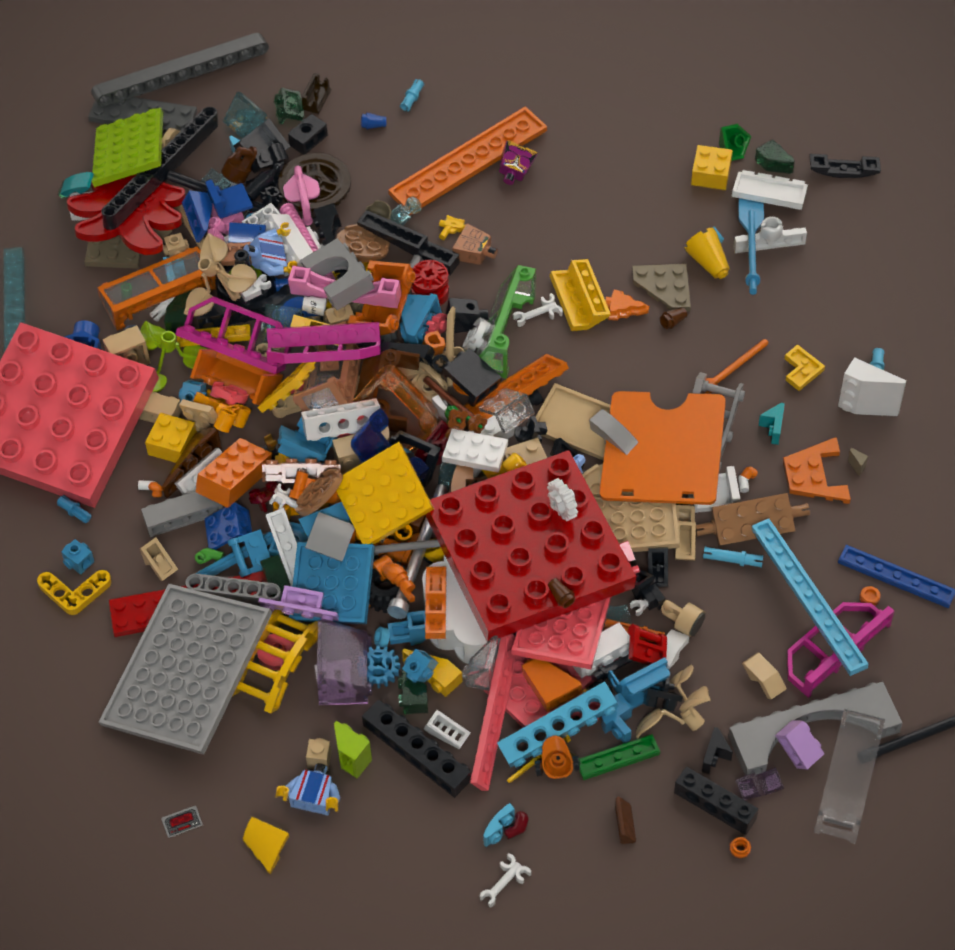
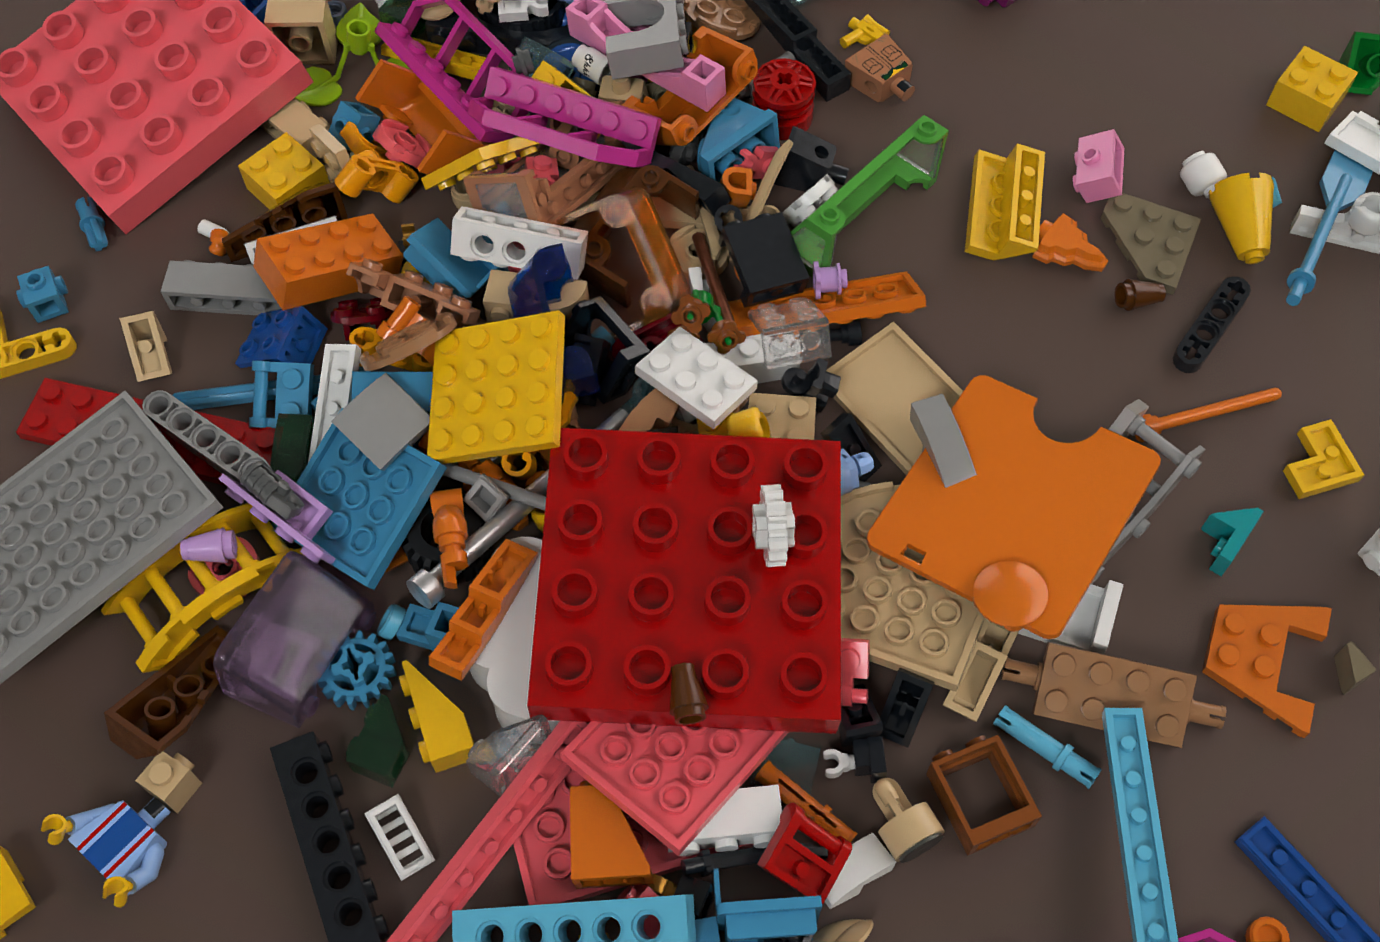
camera: 25 degrees right, 5 degrees up
(208, 554) = (225, 370): bright green arm -> none
(275, 635) = (210, 546): none -> lavender cone
(282, 320) = (523, 62): none -> dark grey plate
(282, 498) = (366, 326): white bar -> none
(291, 595) = (271, 490): none -> dark grey hinge
(295, 719) = (167, 701): none -> reddish brown wedge
(322, 375) = (543, 167): none -> coral plate
(352, 749) = (213, 801): lime slope -> none
(401, 553) = (485, 498): none -> light grey slope
(419, 666) = (402, 706): dark azure brick -> none
(510, 374) = (828, 279): none -> lavender brick
(547, 306) = (949, 201): white bar -> none
(620, 255) = (1099, 166): none -> bright pink brick
(676, 238) = (1201, 173): none -> white head
(684, 490) = (1010, 594): none -> orange dish
(717, 318) = (1212, 324): none -> black beam
(719, 611) = (997, 830): none -> dark orange window
(748, 472) = (1131, 611): arm -> none

